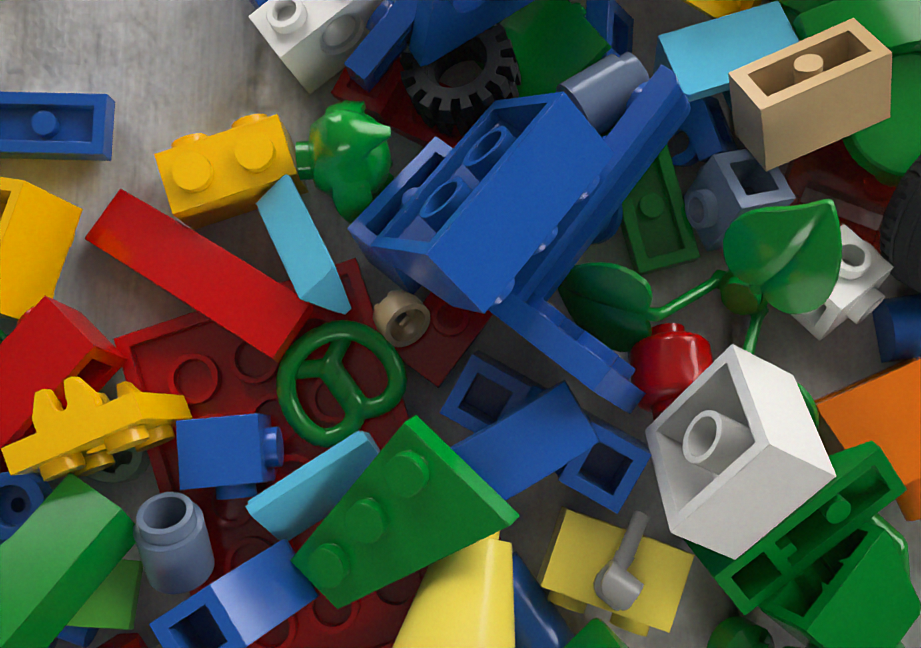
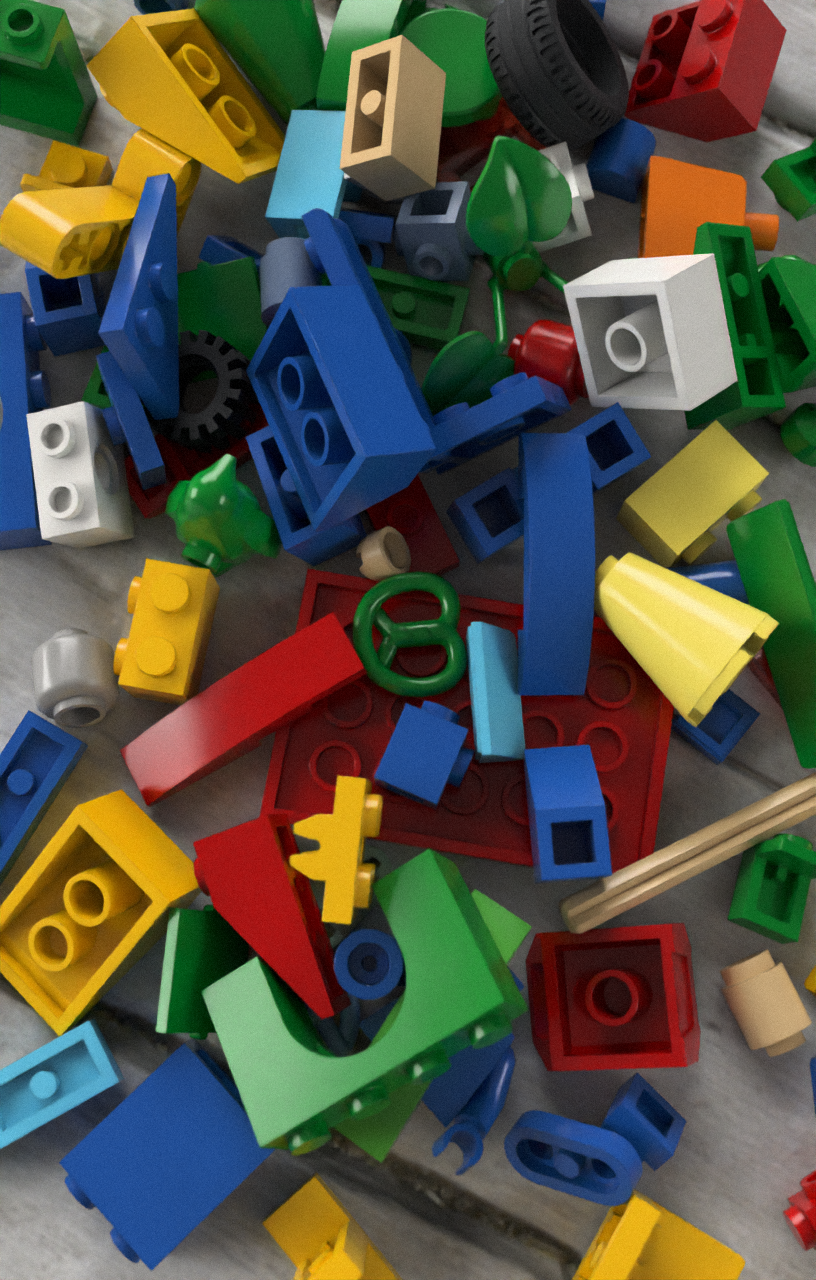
camera: 65 degrees left, 5 degrees down
(153, 113) = (74, 678): none -> light grey head
(173, 543) = (478, 839): sand blue brick -> none
(301, 247) = (277, 592): medium azure slope -> none
(401, 516) = (561, 625): green wing -> none
(614, 582) = (704, 490): light grey hand -> none

